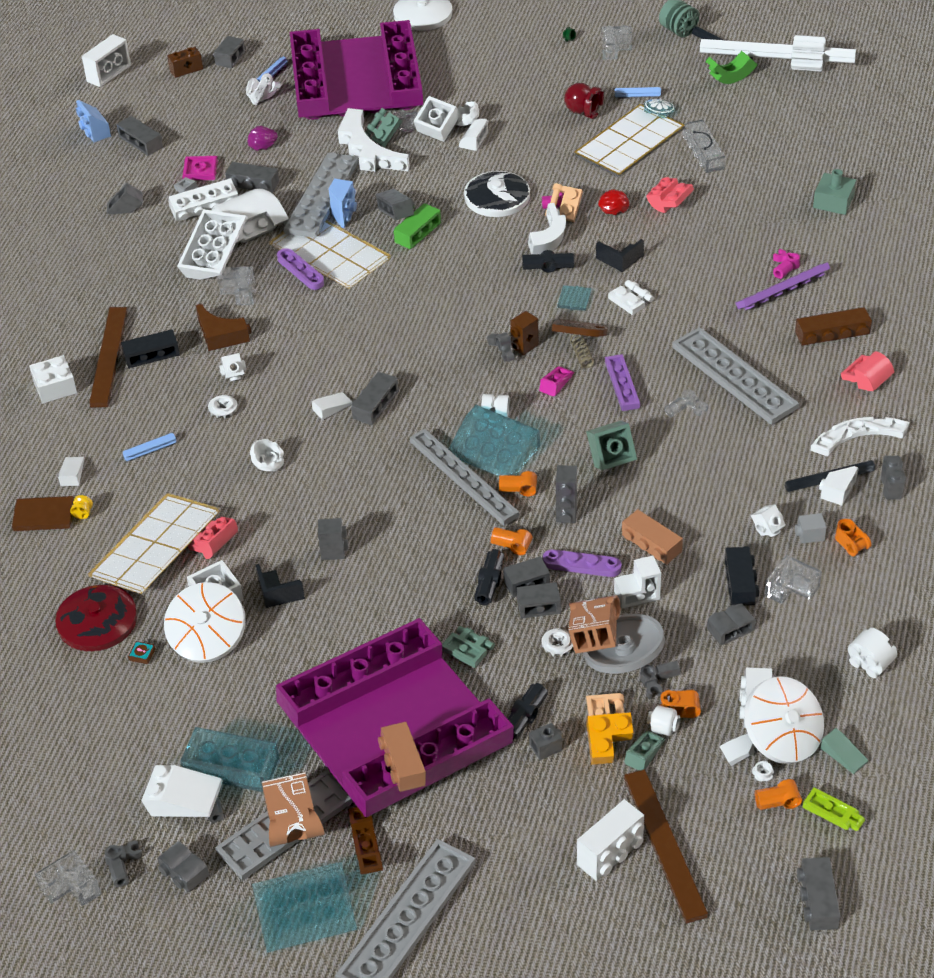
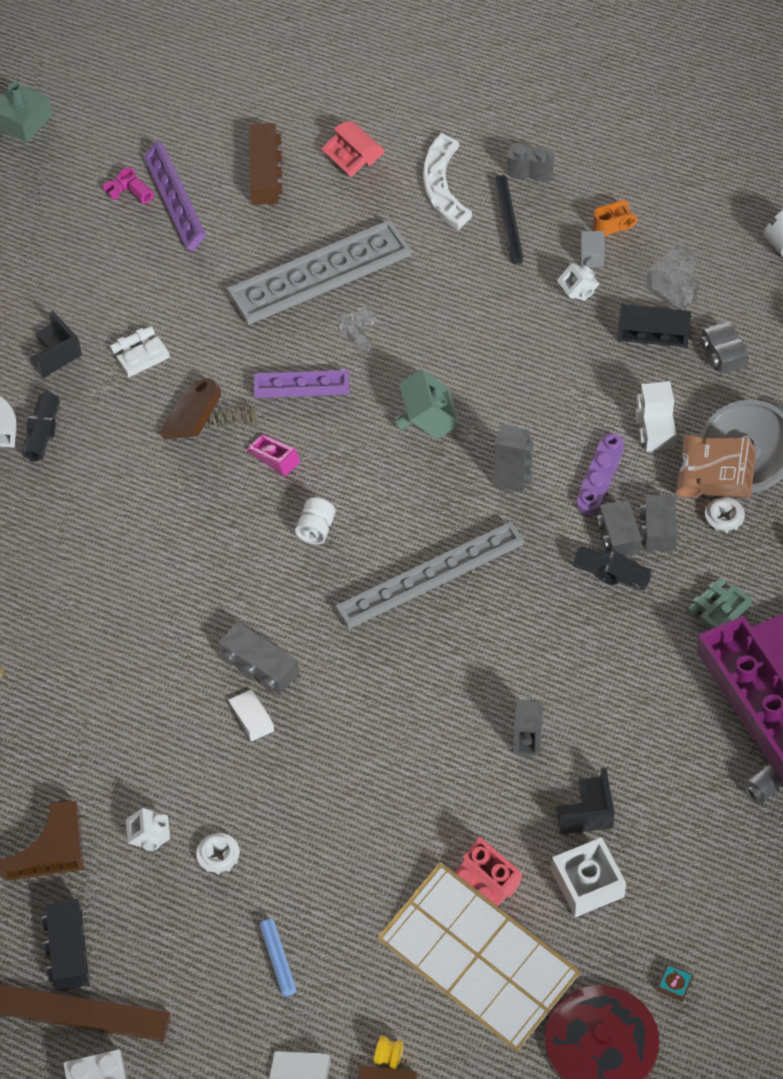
camera: 80 degrees left, 10 degrees up
(204, 622) = (651, 891): white dish -> none
(267, 455) = (342, 799): white hair -> none
(494, 442) = (379, 533): clear light blue slope -> none
(504, 344) = (200, 492): flat silver bar -> none
(516, 541) = (556, 532): orange piece -> none
(524, 332) = (191, 466): reddish brown brick -> none
(525, 483) = (459, 512): orange piece -> none
(574, 298) = (117, 412): clear light blue piece -> none
(652, 536) = (577, 396): nougat brick -> none
(838, 485) = (531, 211): white slope -> none

